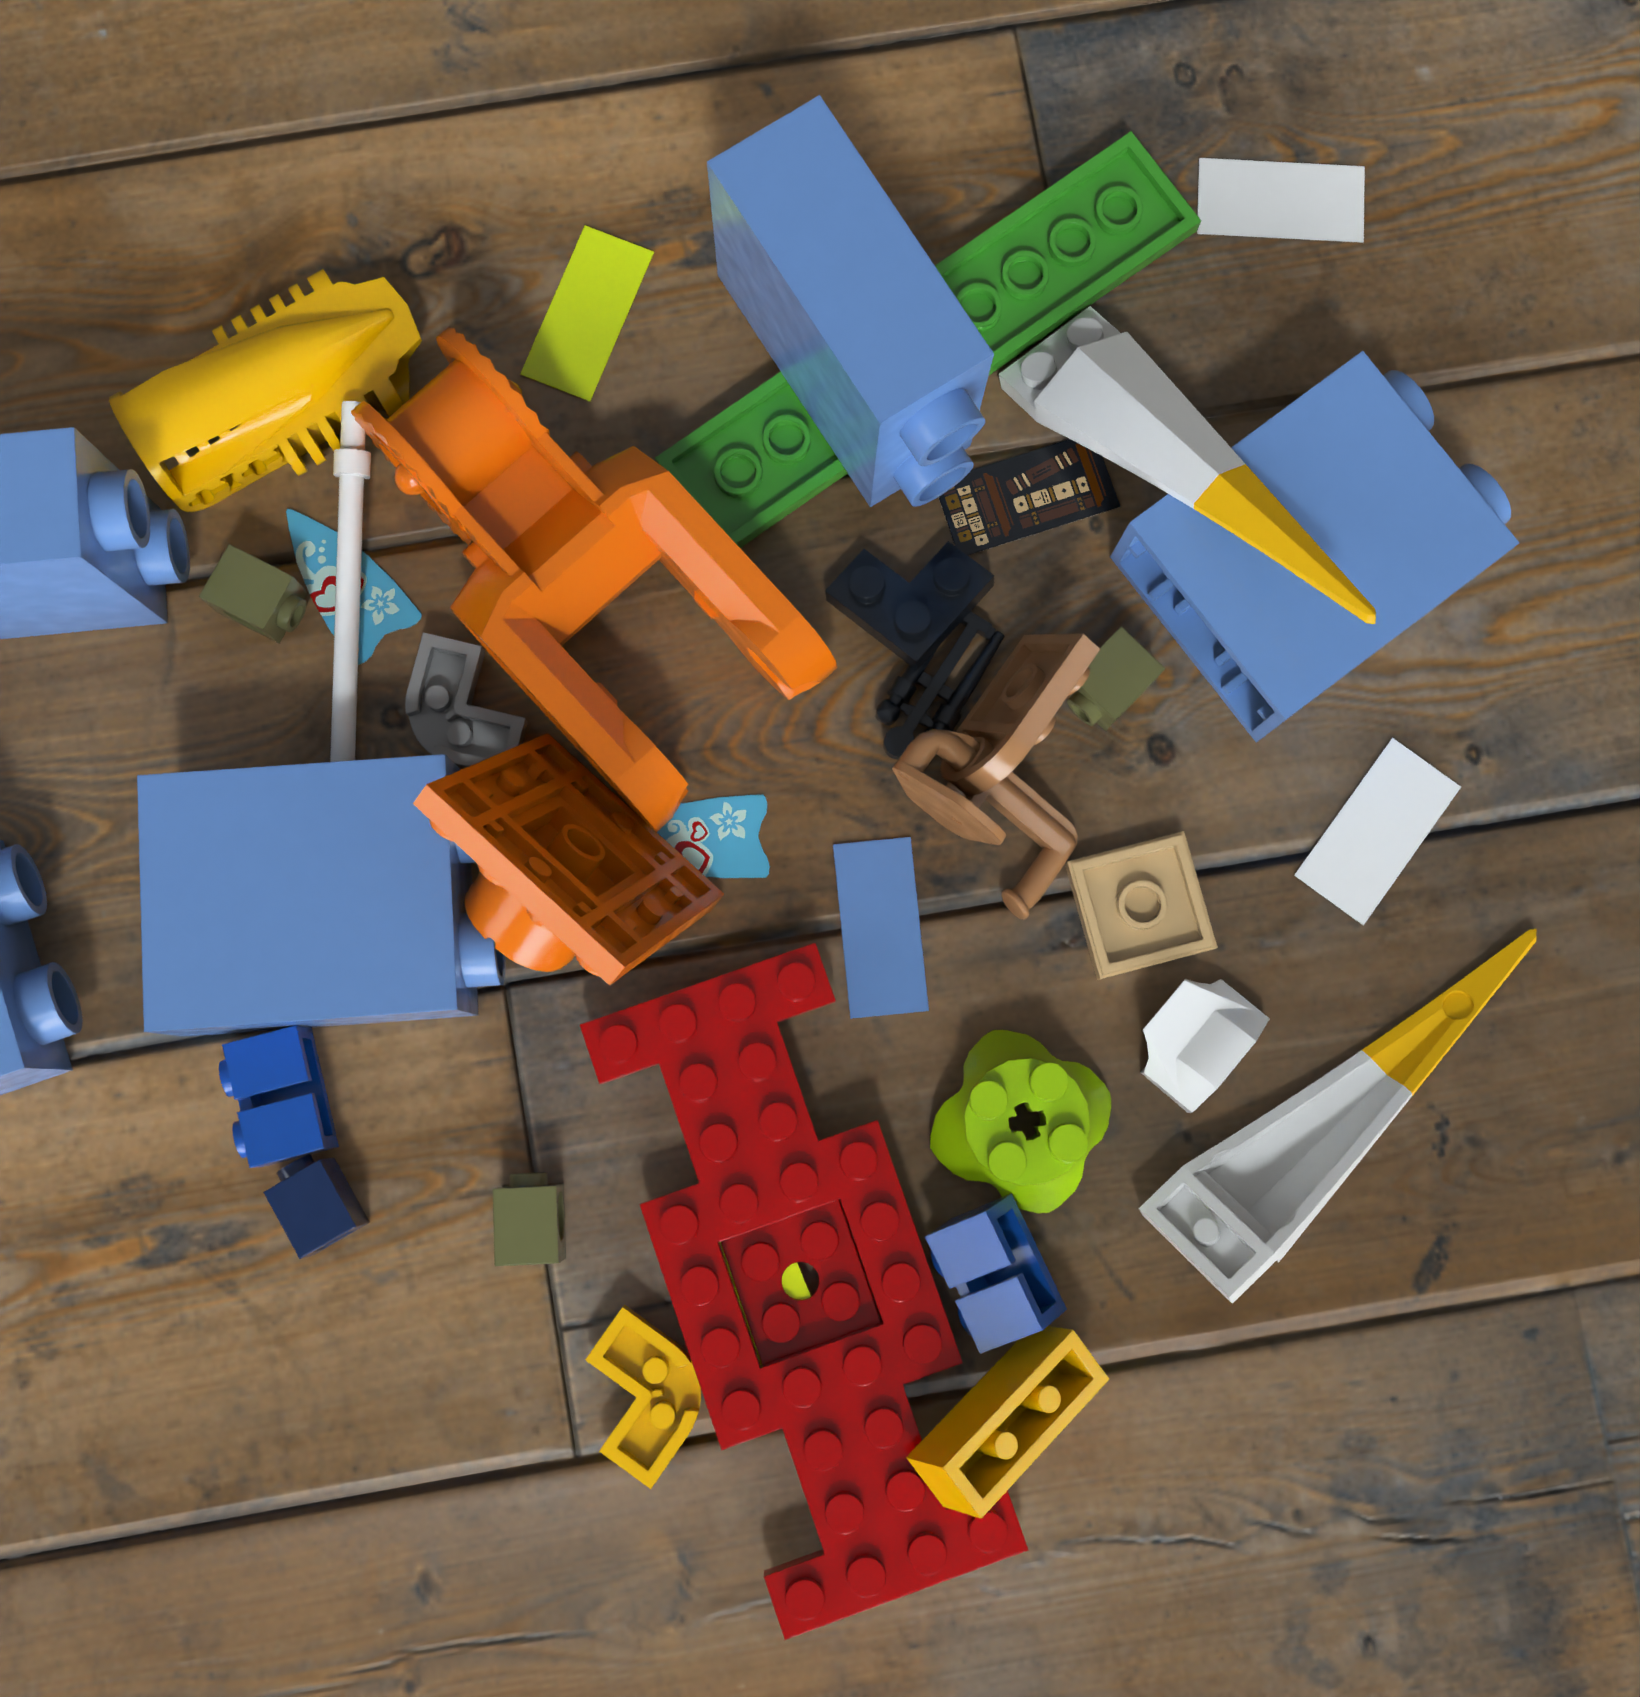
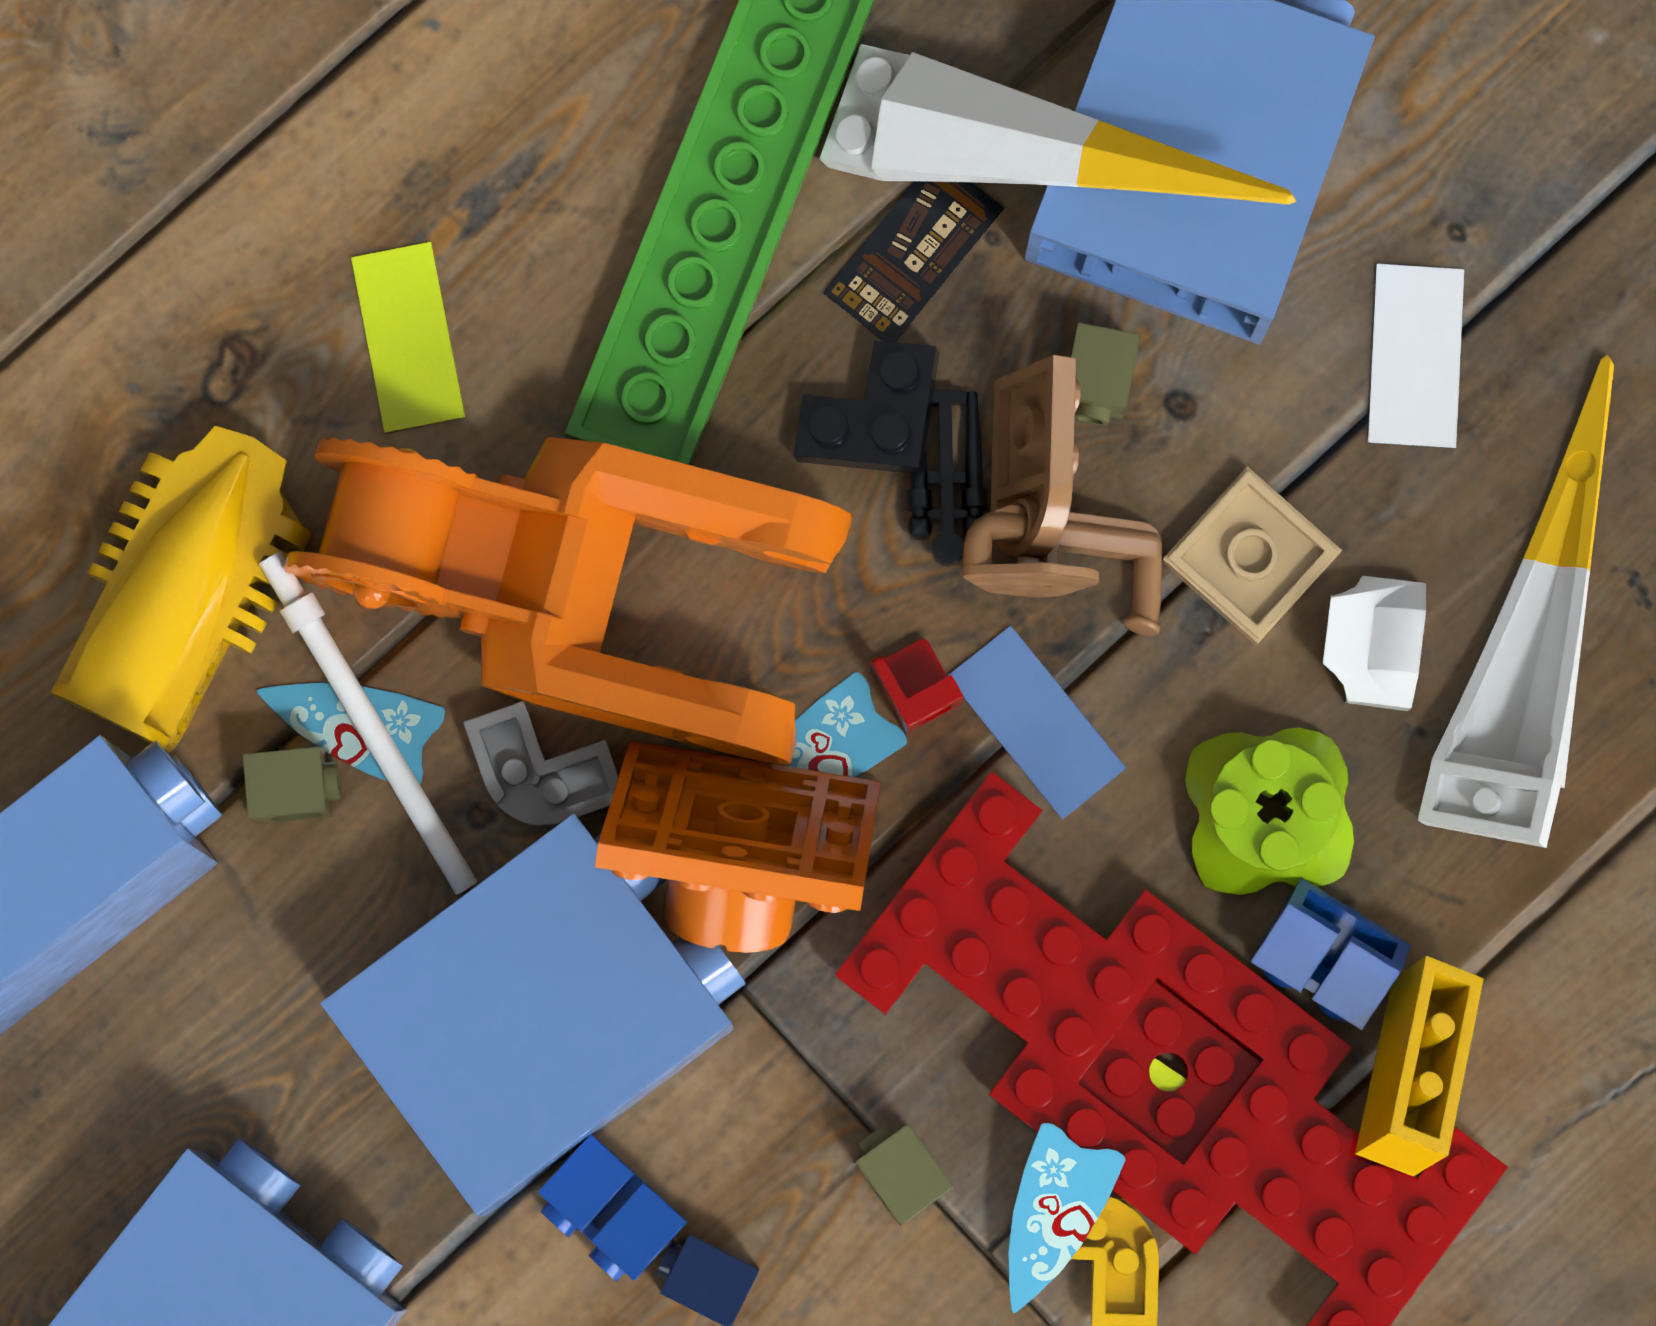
camera: 30 degrees left, 0 degrees up
(631, 1335) = (1055, 1209): none -> medium azure sticker
(802, 835) = (916, 685): none -> red panel
(849, 306) = (676, 206): medium blue brick -> none

